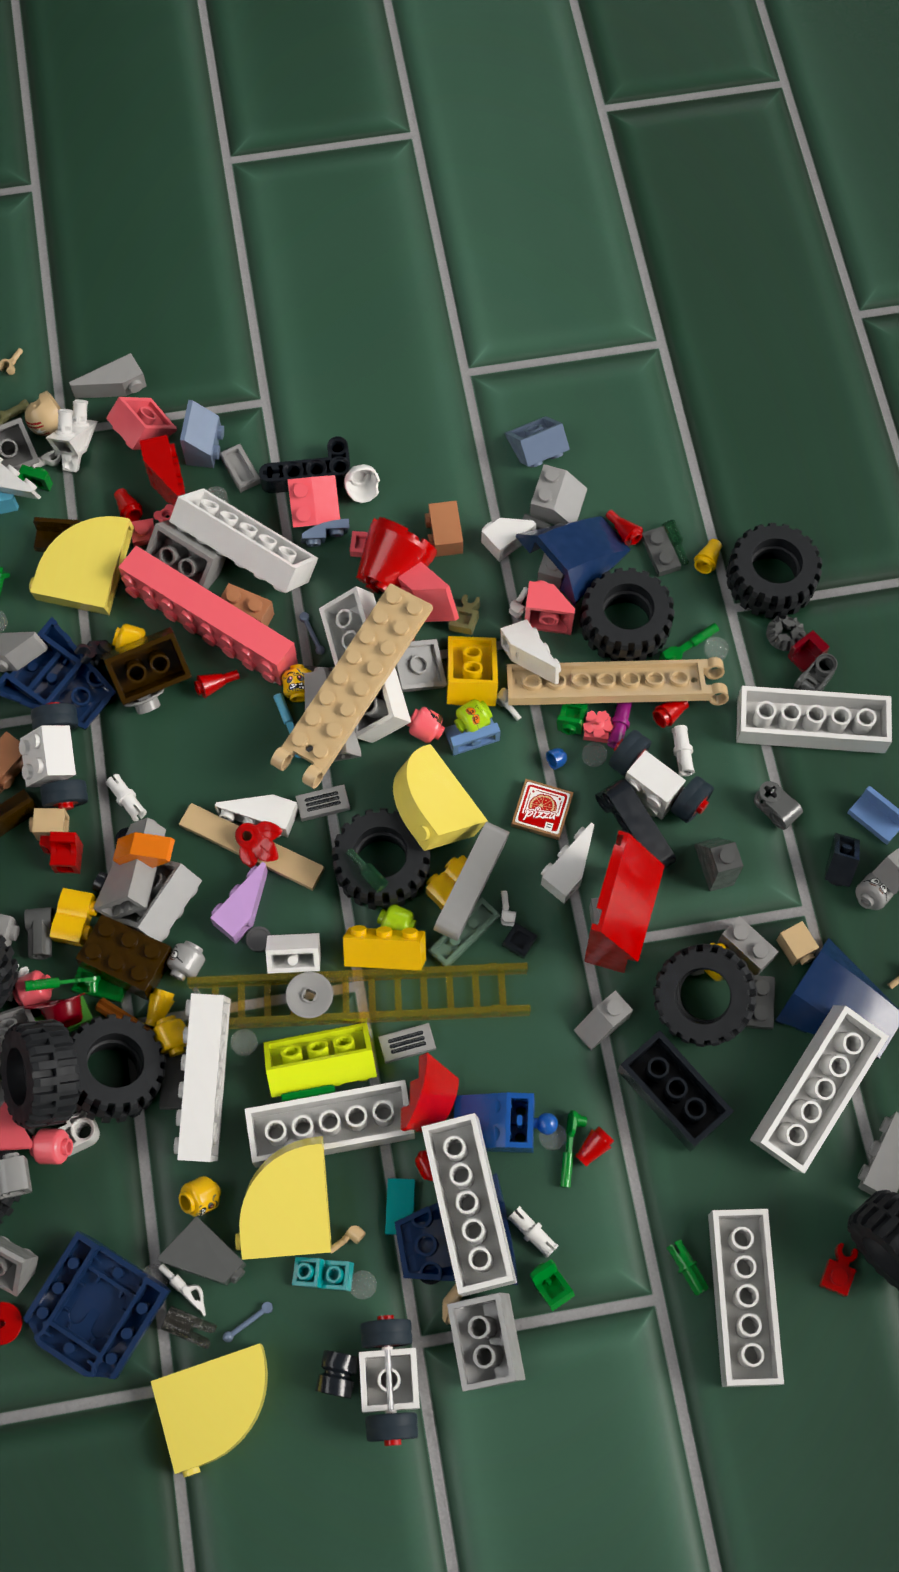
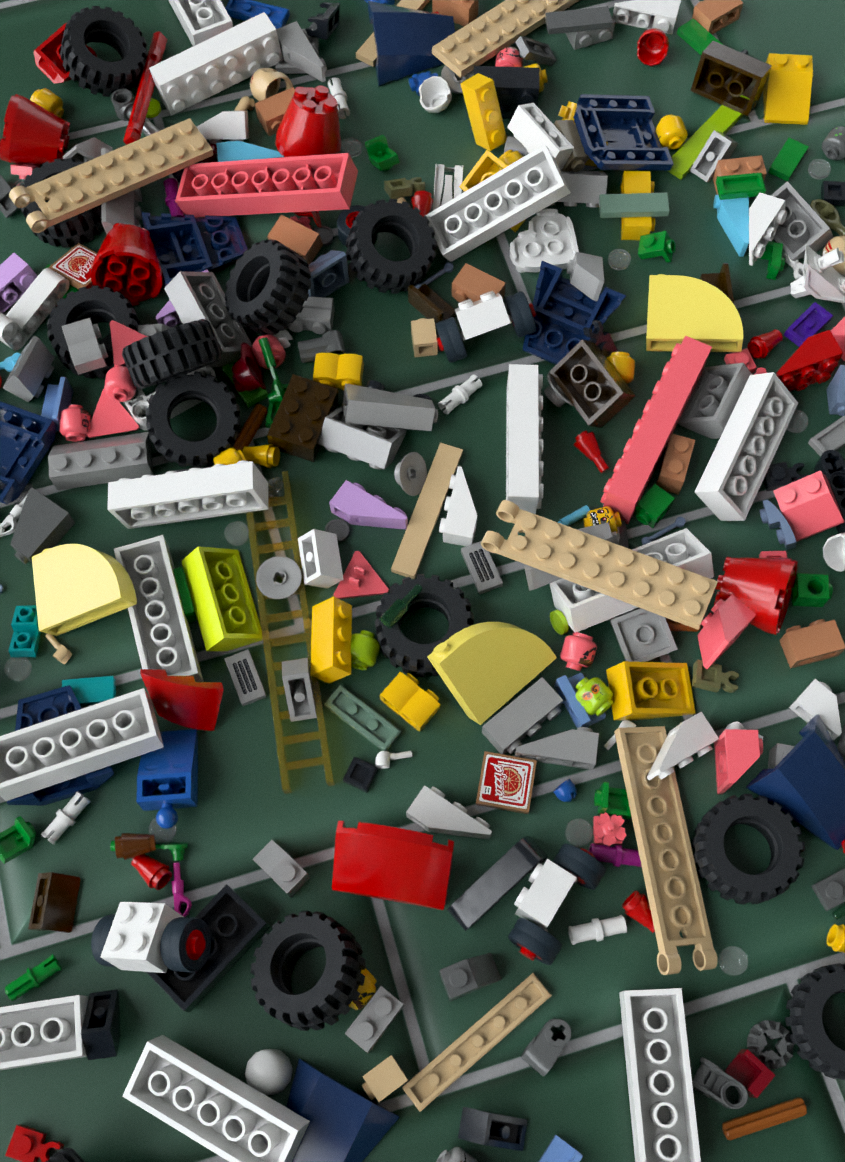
camera: 85 degrees right, 0 degrees up
(47, 1234) = (57, 399): none -> medium blue panel
(65, 851) = (398, 352): red brick -> none
(80, 1210) = (75, 423): none -> coral head
(82, 1169) = (110, 418): none -> coral piece
(115, 463) = (808, 324): none -> dark purple plate
(129, 1183) = (100, 461): none -> light grey slope
(148, 848) = (401, 410): orange slope -> none
(185, 960) = (305, 468): light grey head -> none
(196, 740) = (524, 437): none -> white brick
(199, 1196) = (89, 515): yellow head -> none
(211, 856) = (411, 473): none -> light grey piece
(261, 843) = (426, 512): red plate -> none
(273, 518) = (780, 475): none -> black plate
(289, 629) = (653, 506): none -> green brick
(317, 919) = (360, 580): none -> coral piece
(393, 738) = (559, 622): none -> lime piece
(395, 508) = (803, 597): none -> green brick
(430, 985) = (298, 689): none -> light grey slope
(471, 881) = (408, 712): light grey beam -> none
(483, 784) = (523, 717): none -> light grey brick
(518, 746) = (568, 748): none -> light grey slope
(570, 1158) = (134, 844): none -> reddish brown cone
(616, 1247) = (54, 902): none -> dark brown panel
(622, 1122) = (178, 890): none -> dark pink hand
(669, 1137) = (151, 939): none -> brick
(676, 653) = (716, 912): green piece -> none
(735, 1196) = (102, 1025): none -> black slope
(764, 1013) = (325, 1041): dark grey plate -> none
(769, 864) = (476, 1042): none -> tan tile
(785, 1047) = (269, 1071): none -> white hair
(843, 648) = (764, 1118): none -> dark orange axle

